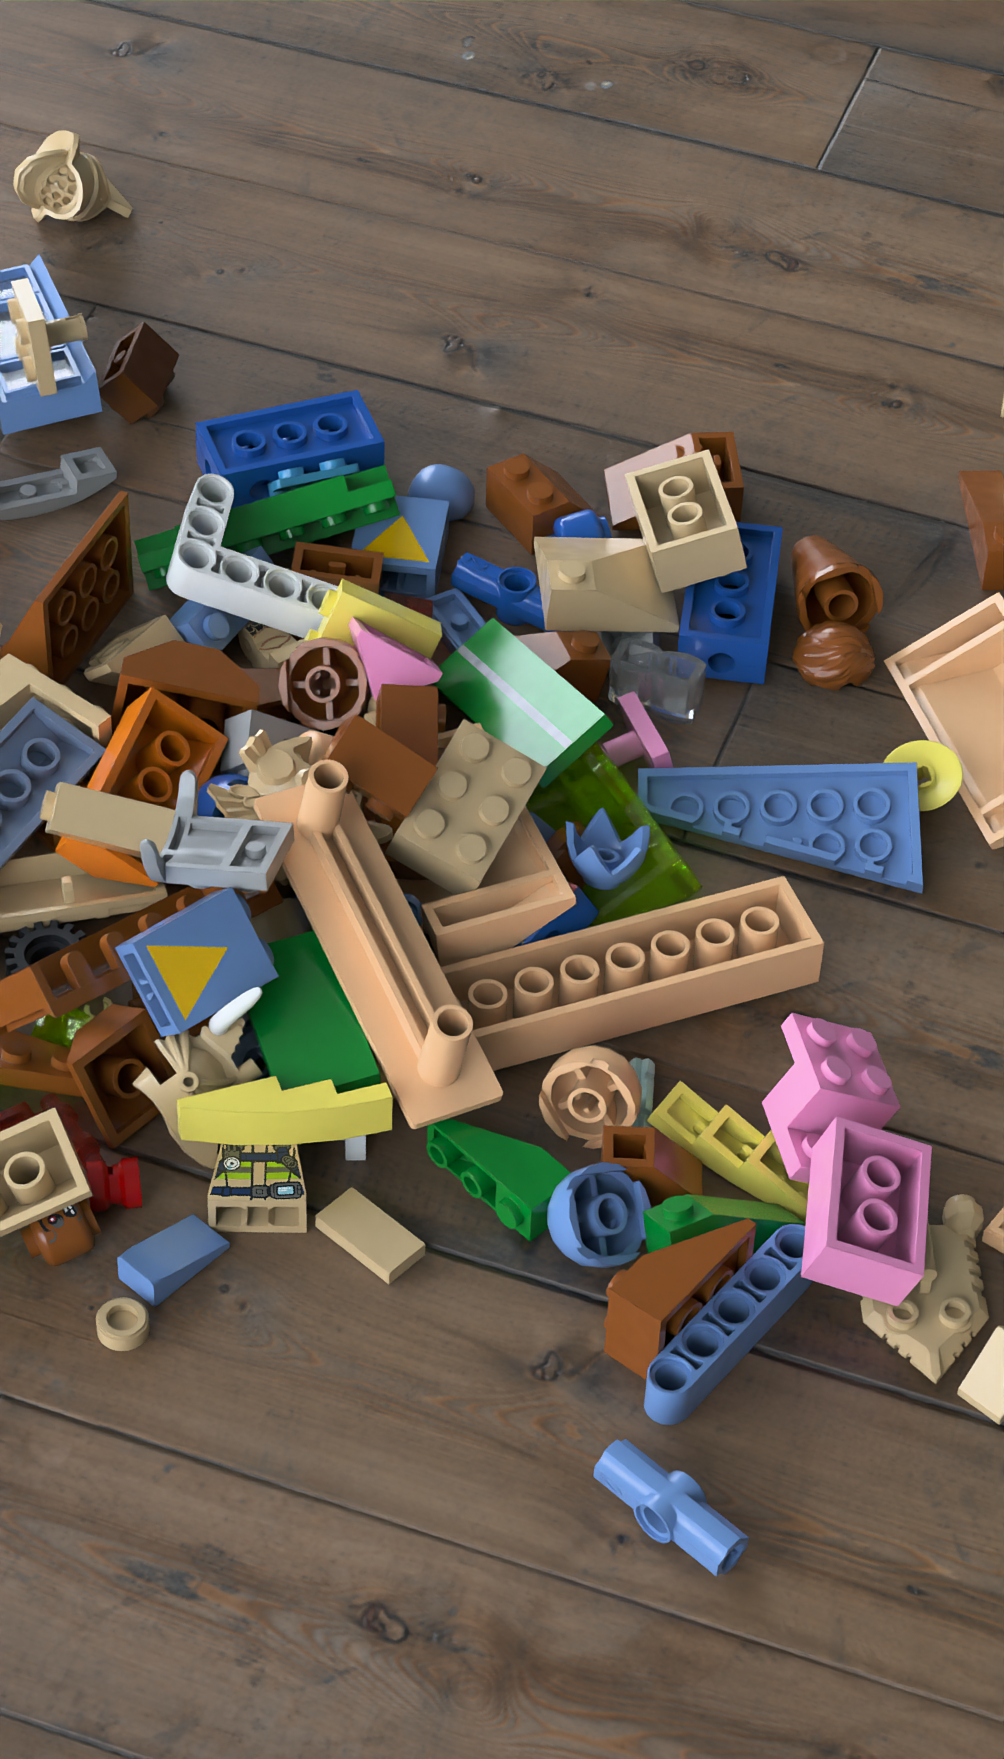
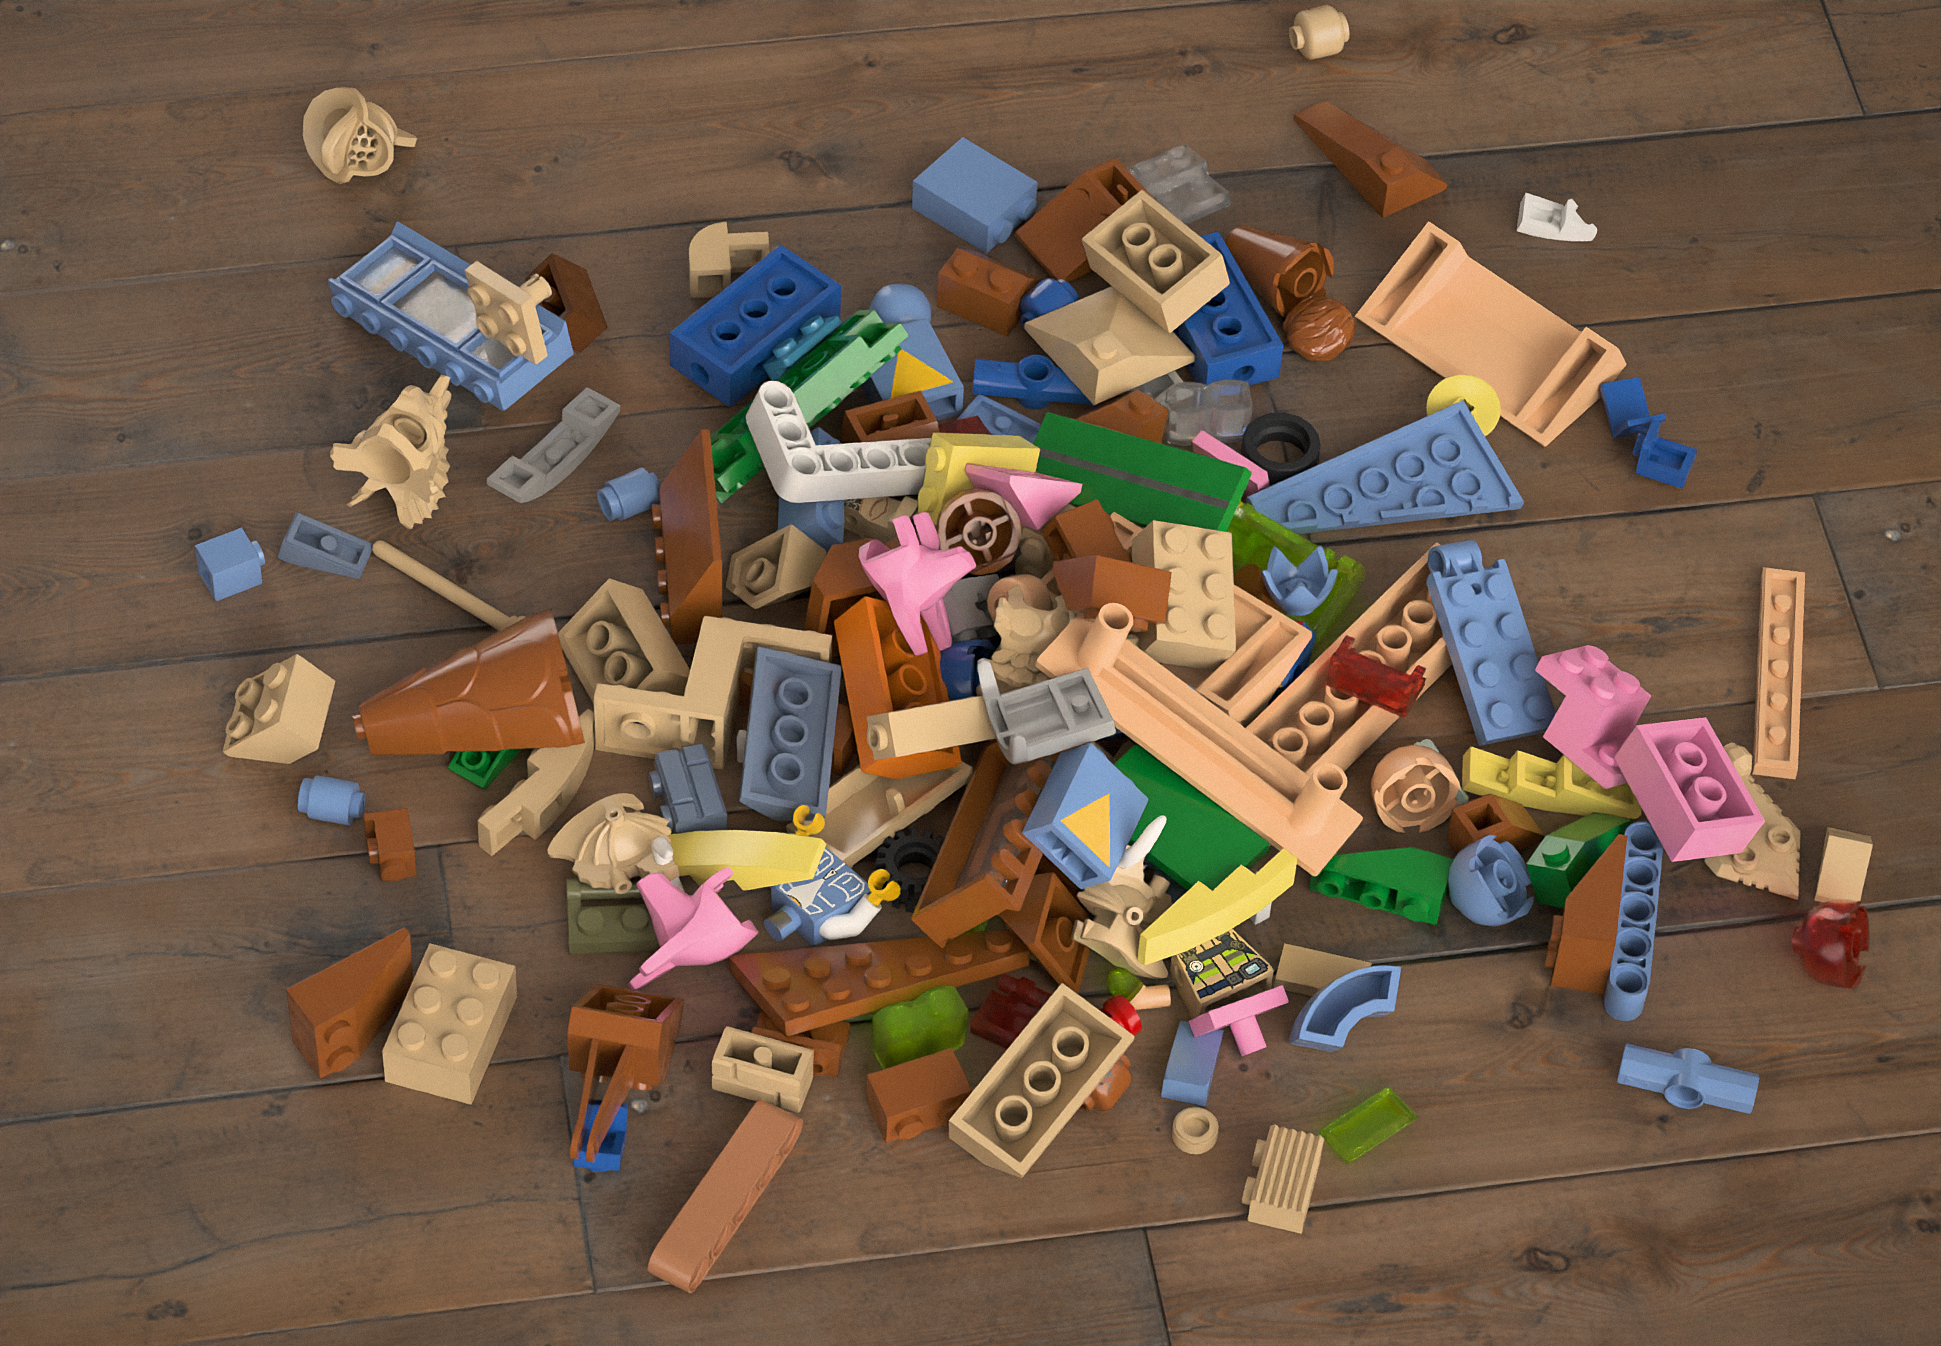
camera: 30 degrees left, 5 degrees up
(55, 544) = (629, 494): none -> medium blue brick
(165, 1409) = (1284, 1179): none -> tan brick
(166, 1169) = (1125, 983): none -> arm
(210, 691) = (916, 579): none -> bright pink piece
(245, 1234) = (1241, 1019): none -> bright pink tile
(298, 1399) = (1368, 1124): none -> clear neon green tile
(306, 380) = (718, 254): none -> tan brick
(349, 1265) = (1342, 1003): none -> medium blue brick
(587, 423) = (975, 195): none -> medium blue brick
(612, 969) = (1373, 680): none -> clear red hinge
(709, 721) = (1283, 428): none -> black tyre
(761, 984) = (1488, 644): none -> medium blue hinge
(789, 489) = (1182, 184): none -> clear slope
(934, 1441) = (1832, 942): none -> clear red cylinder

